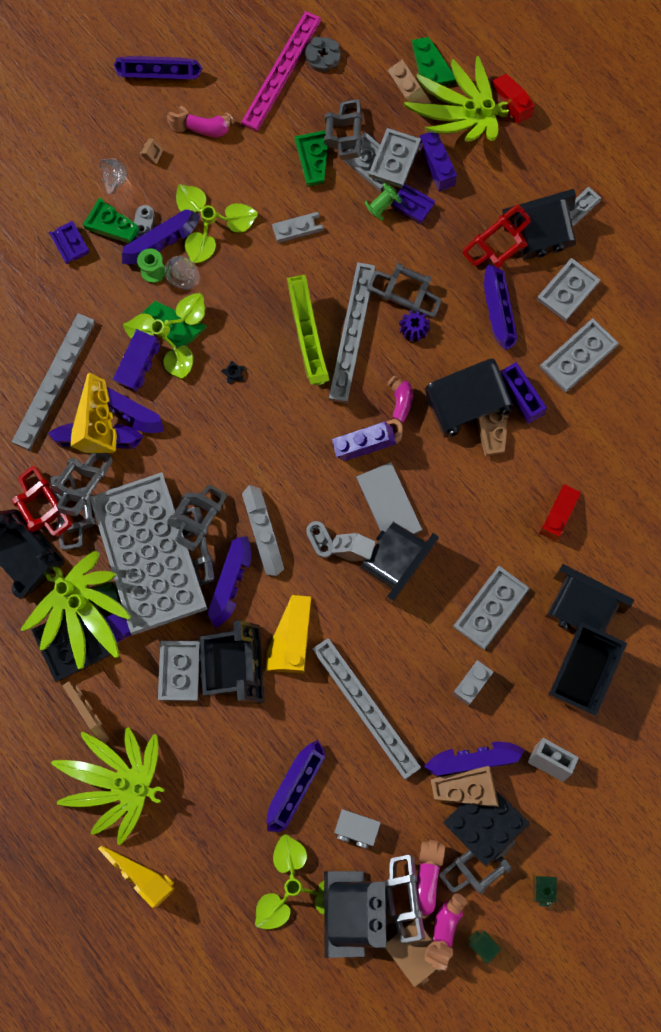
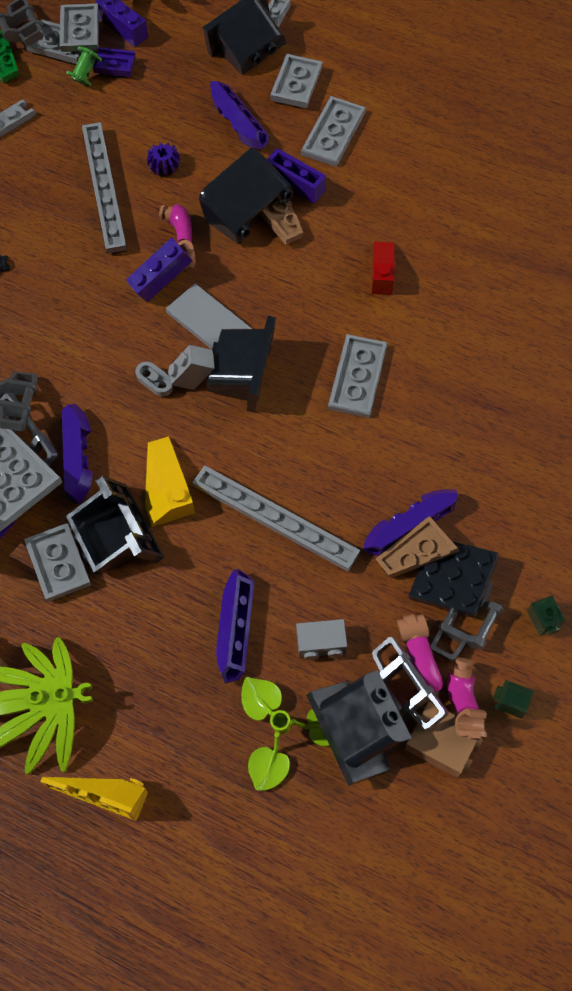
camera: 25 degrees left, 10 degrees down
(262, 530) = (90, 393): light grey brick -> none
(306, 330) = (75, 218): lime arch -> none
(414, 306) = (124, 142): flat silver bar -> none
(472, 683) = (373, 448): light grey brick -> none
(490, 252) = (207, 36): red bar -> none
(553, 759) = (490, 486): light grey brick -> none
(585, 601) = (449, 330): black windscreen -> none
(587, 669) = (483, 383): black container -> none

